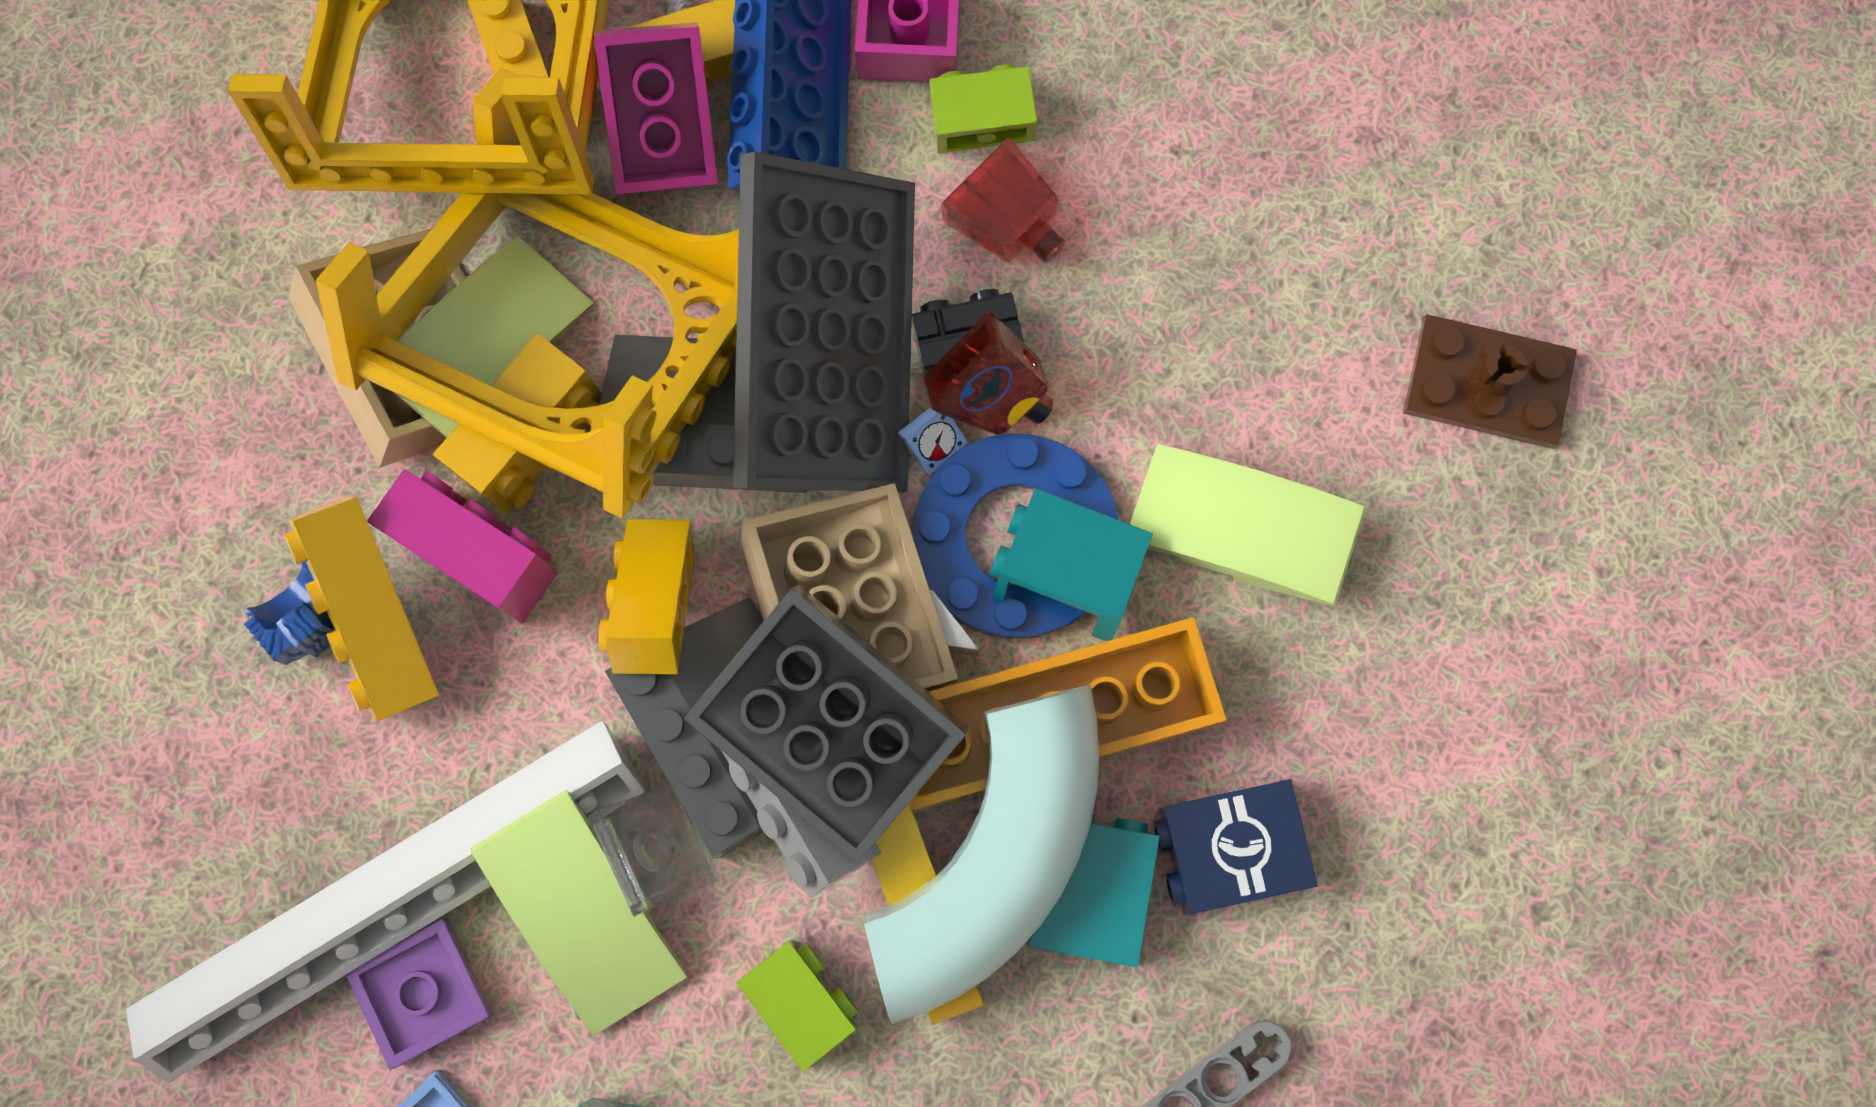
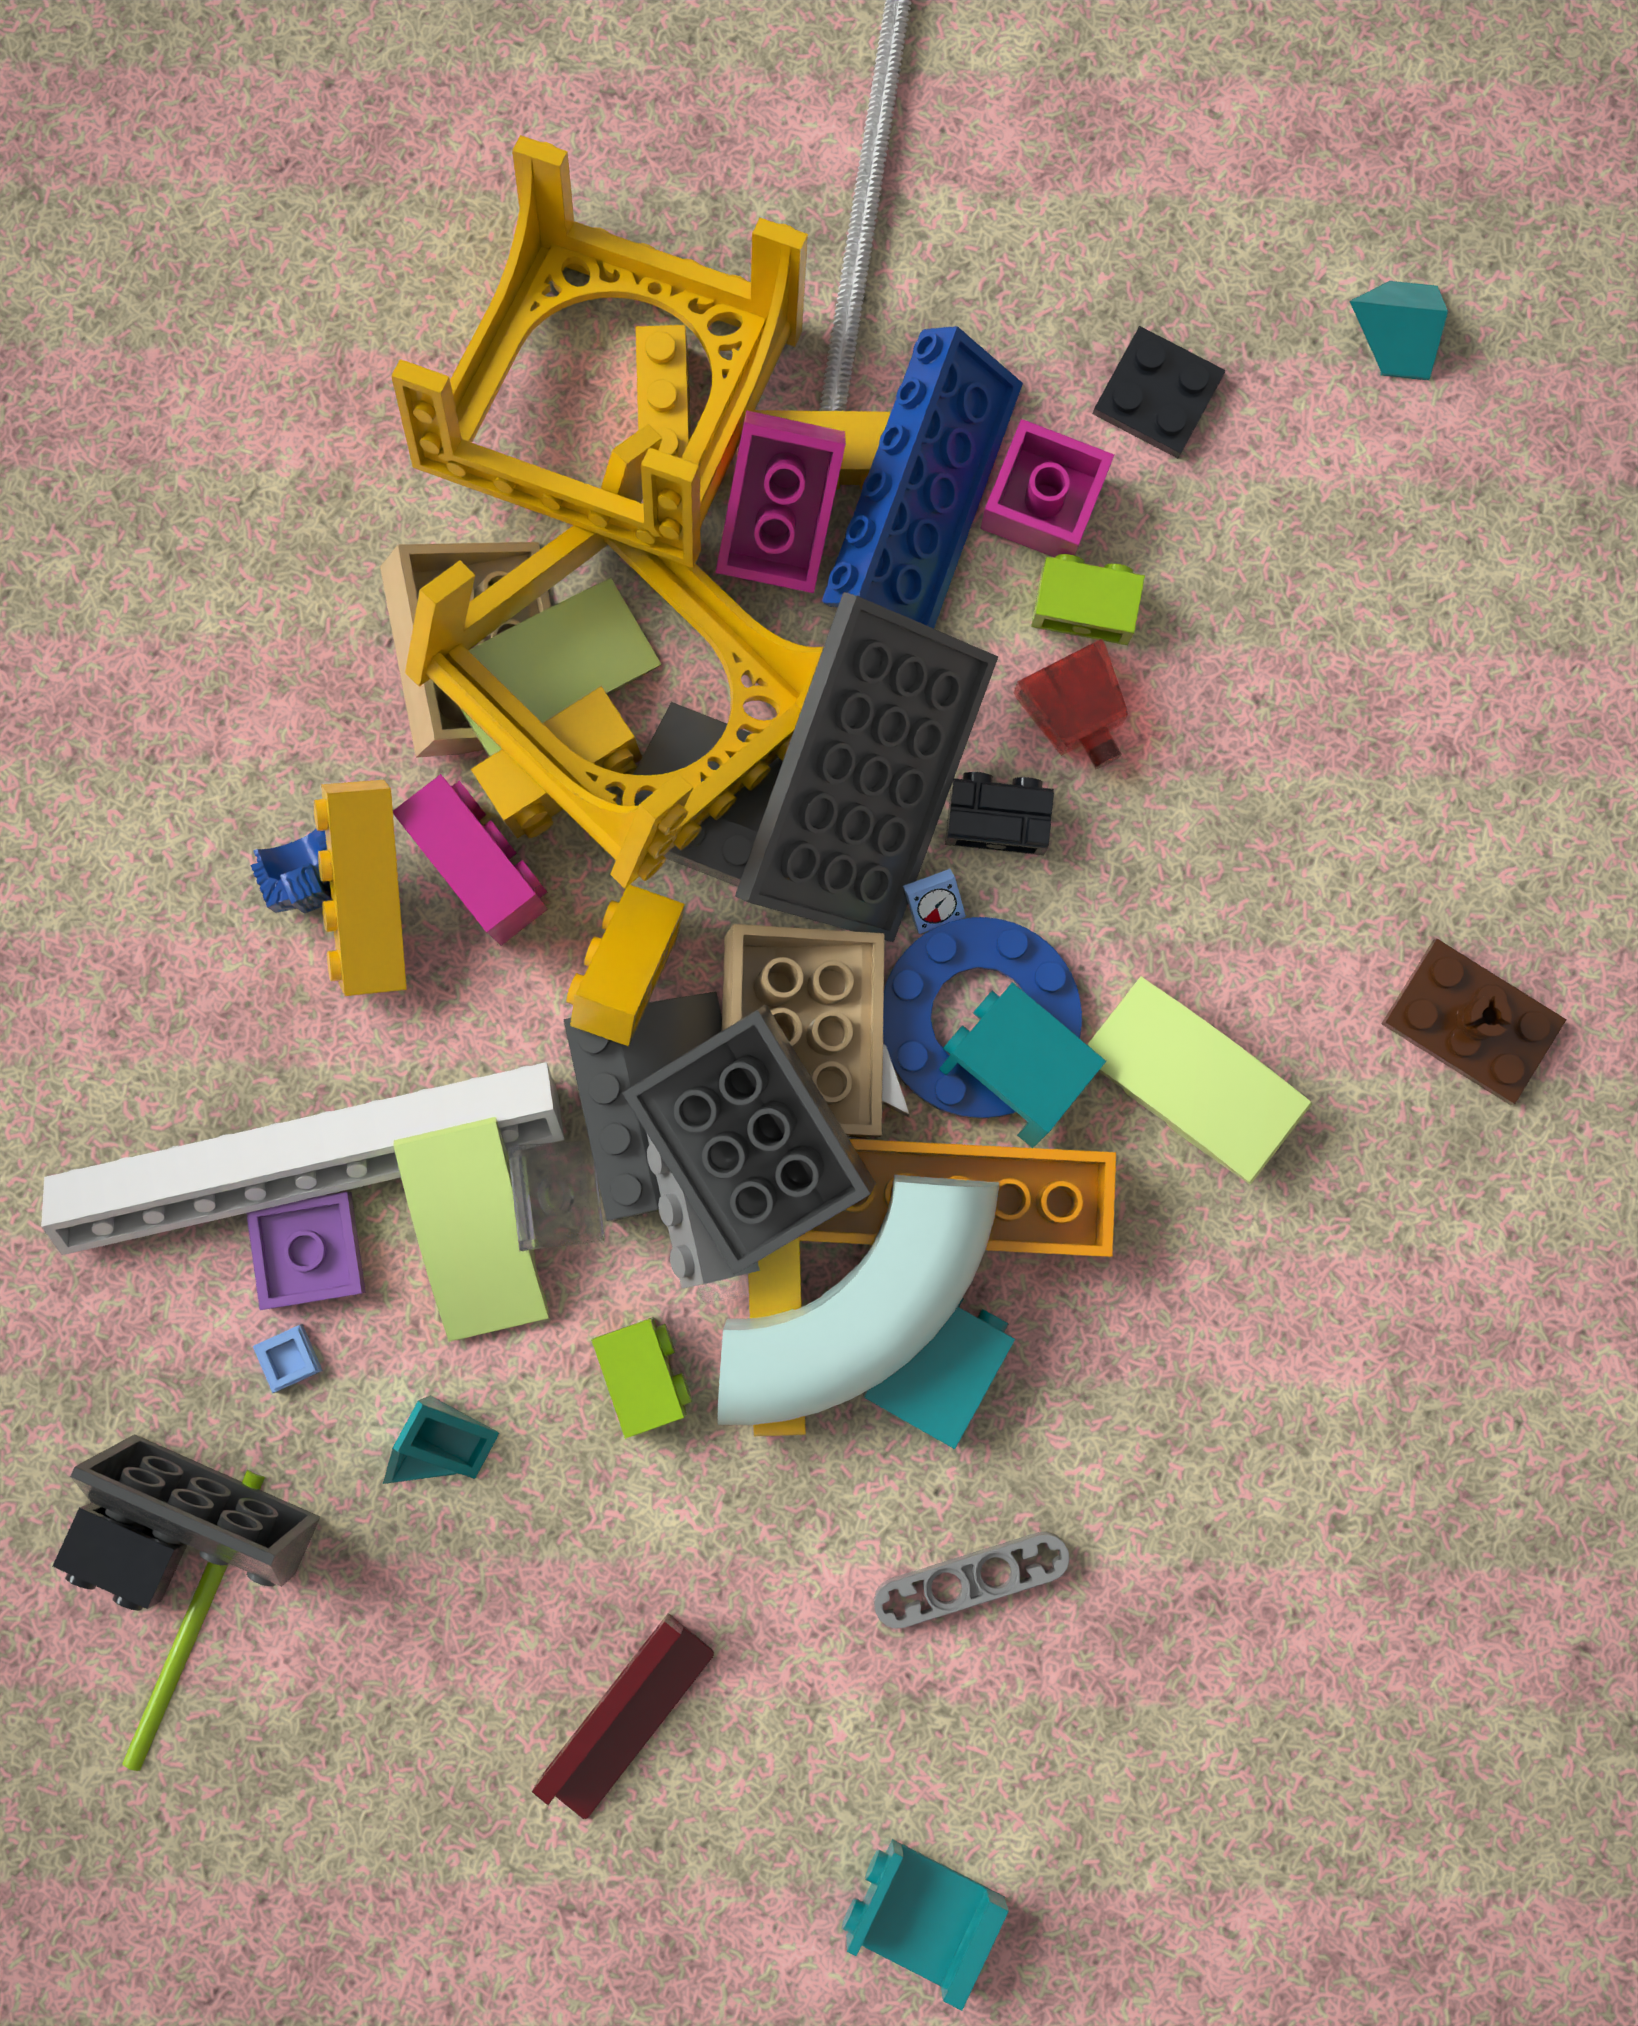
camera: 15 degrees right, 5 degrees up
(989, 379) = (1004, 866): clear red torso -> none
(1235, 847) = (1080, 1372): dark blue panel -> none

